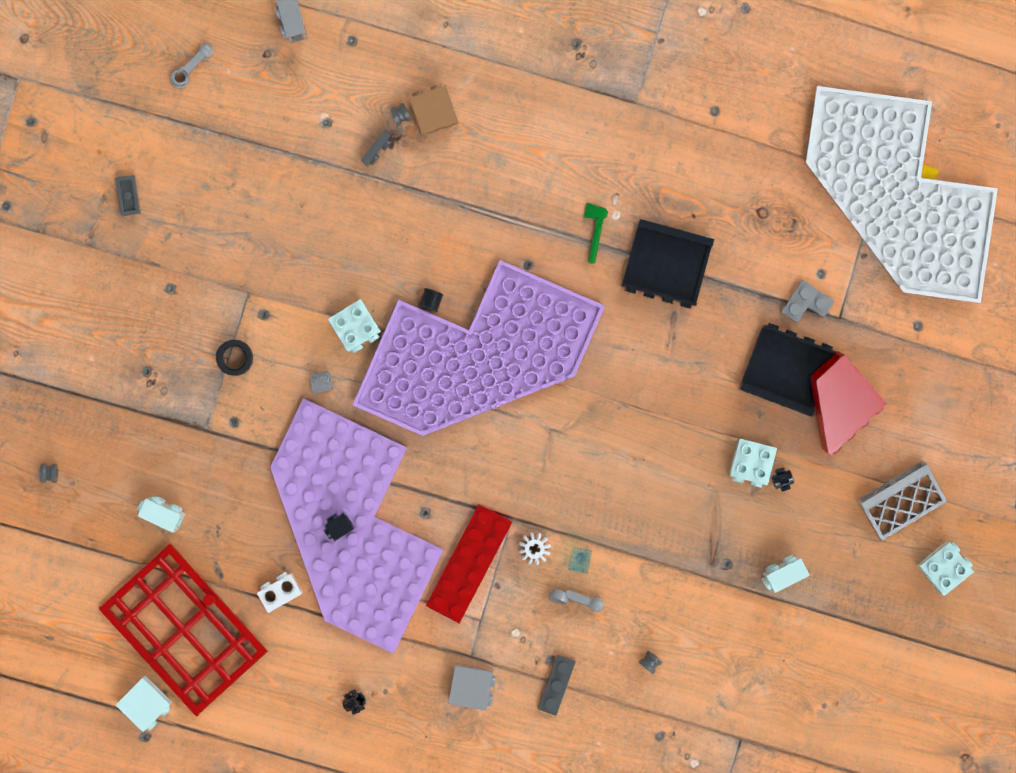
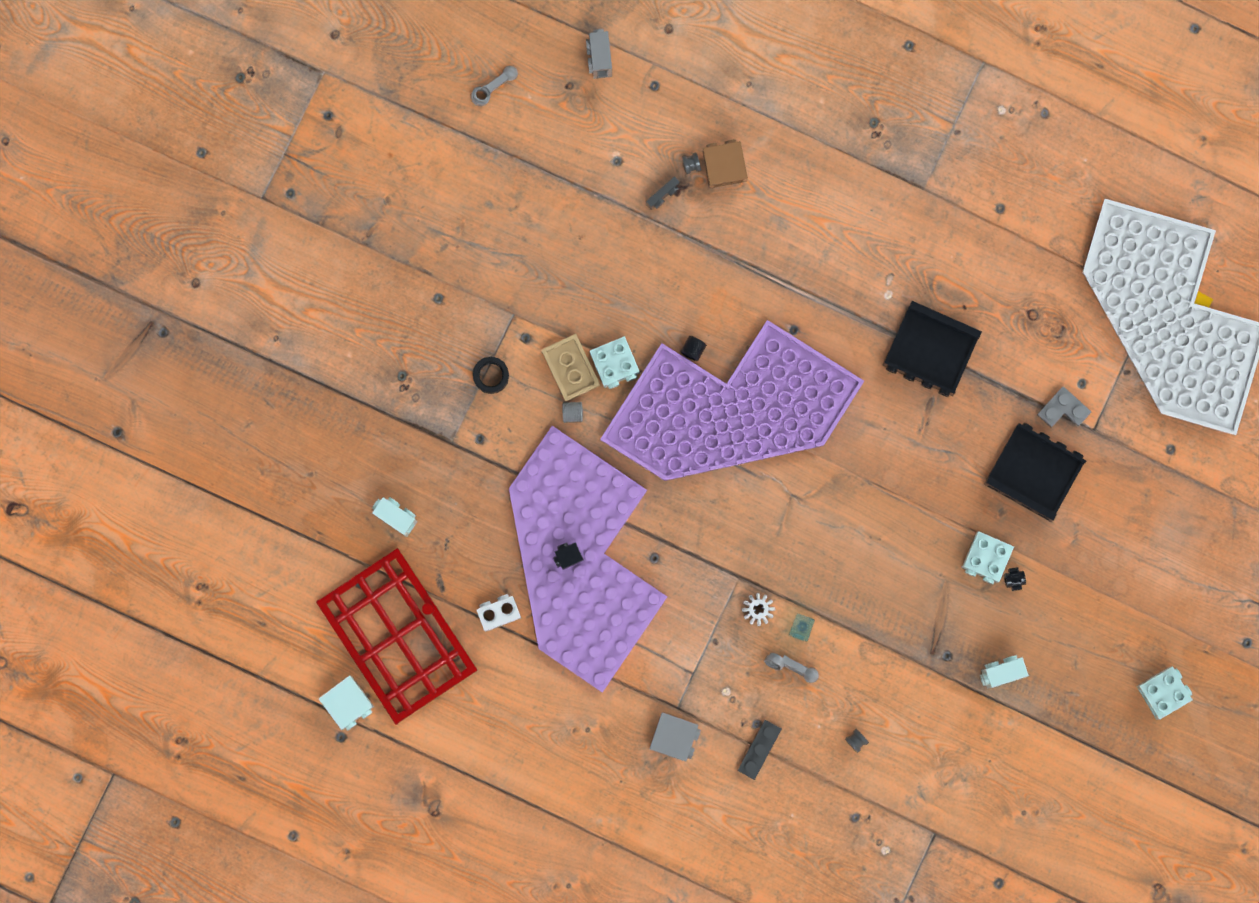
camera: 10 degrees right, 5 degrees down
(48, 473) = (289, 460): dark grey wheel -> none
(128, 195) = (412, 201): dark grey plate -> none
(312, 337) = (570, 367): none -> tan plate
(354, 702) = (555, 734): black gear -> none
(469, 563) = (690, 615): red plate -> none
(598, 213) = (872, 290): green piece -> none
(842, 401) = (1085, 511): slope -> none
(890, 489) = (1125, 603): light grey fence -> none

